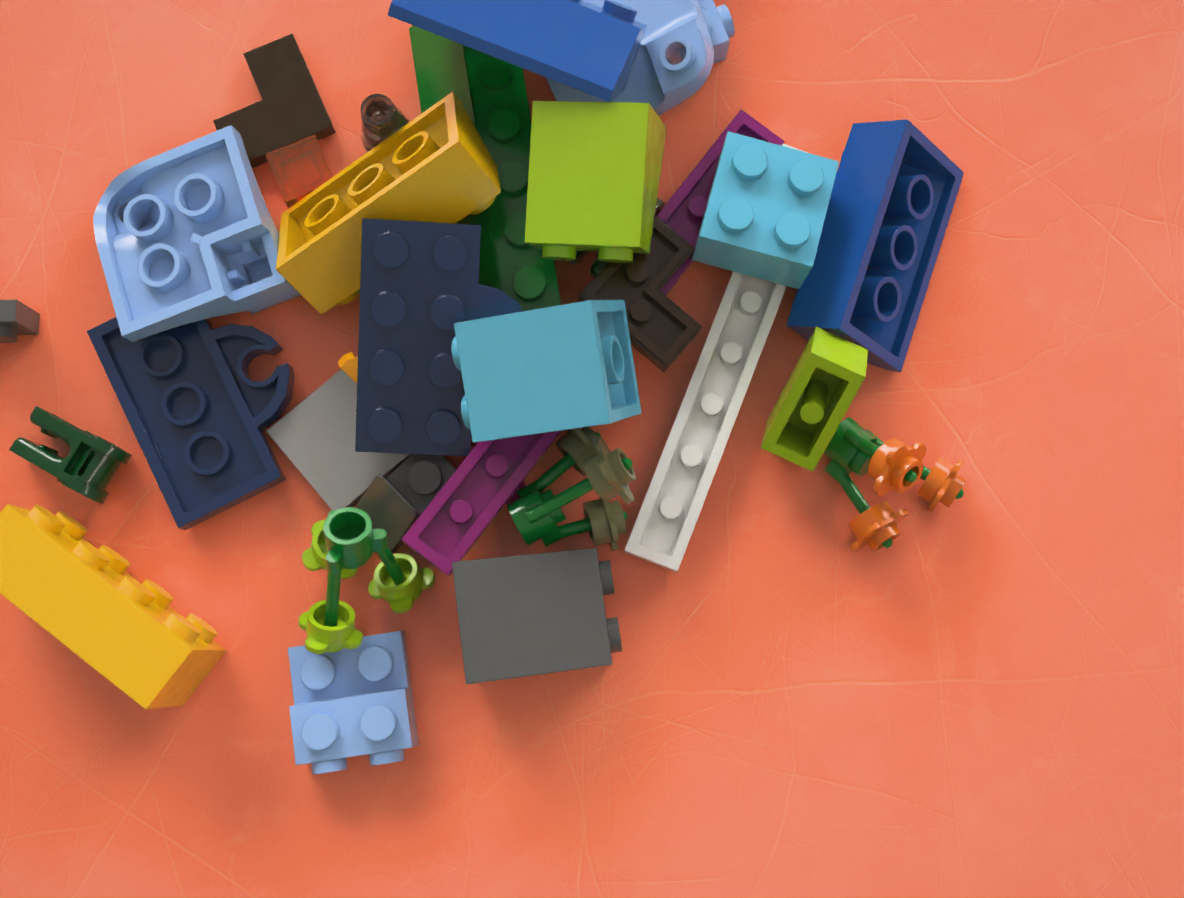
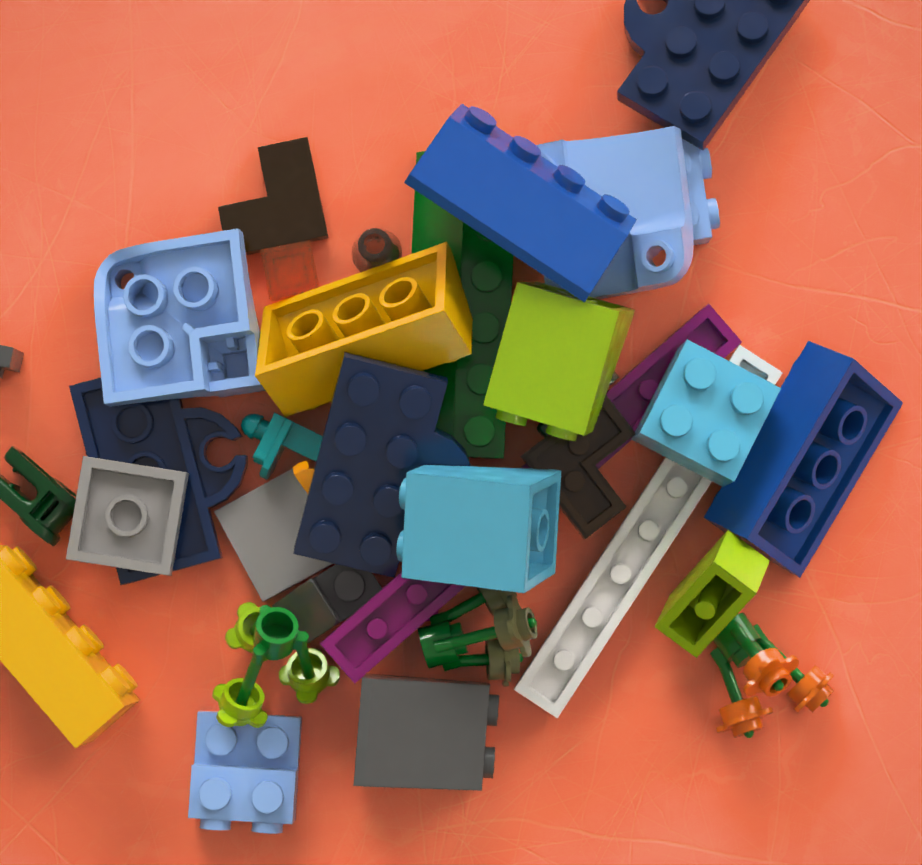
camera: 10 degrees right, 5 degrees up
(168, 449) = (127, 516): none -> light grey plate
(317, 341) = (275, 437): none -> teal piece

